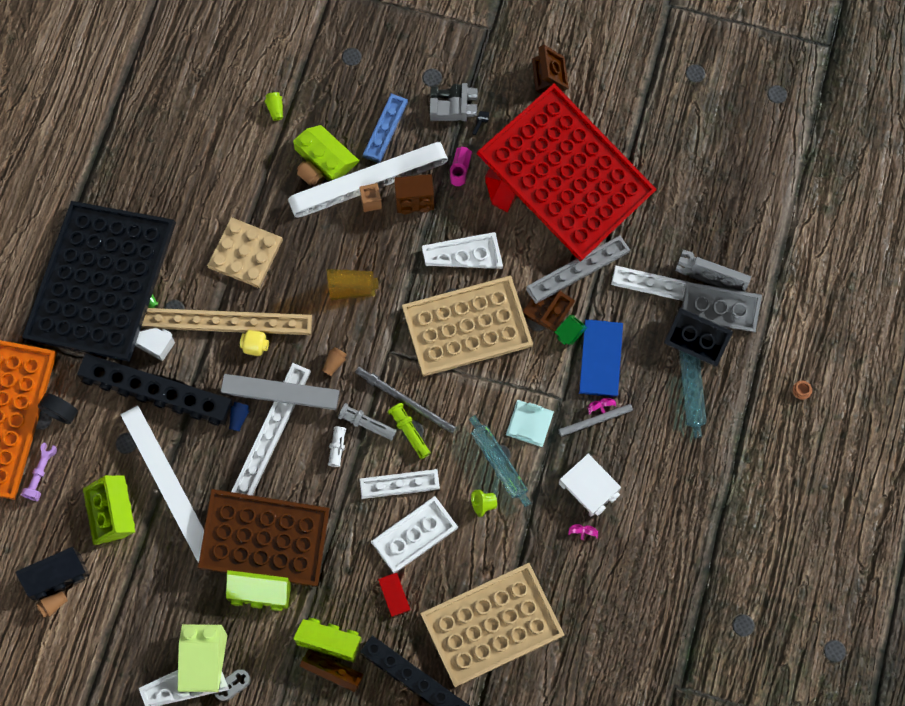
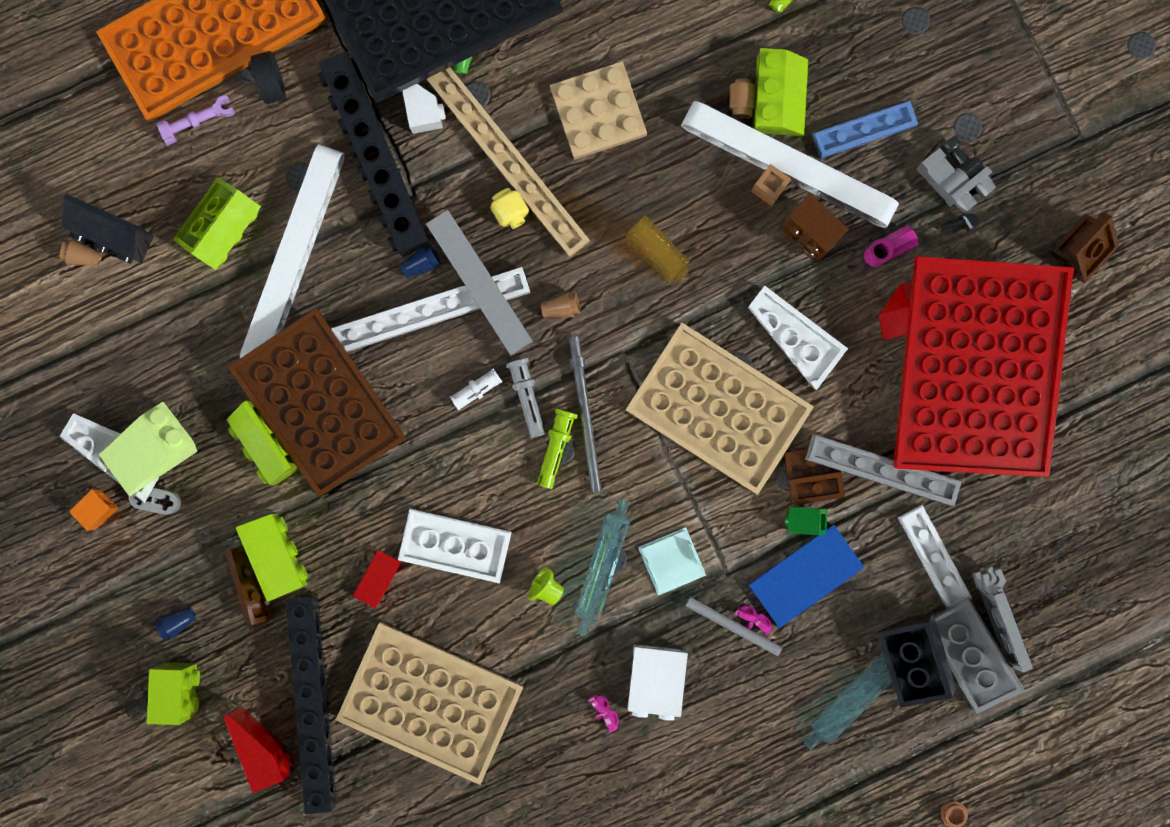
camera: 50 degrees right, 15 degrees up
(399, 484) = (493, 485): white tile -> none

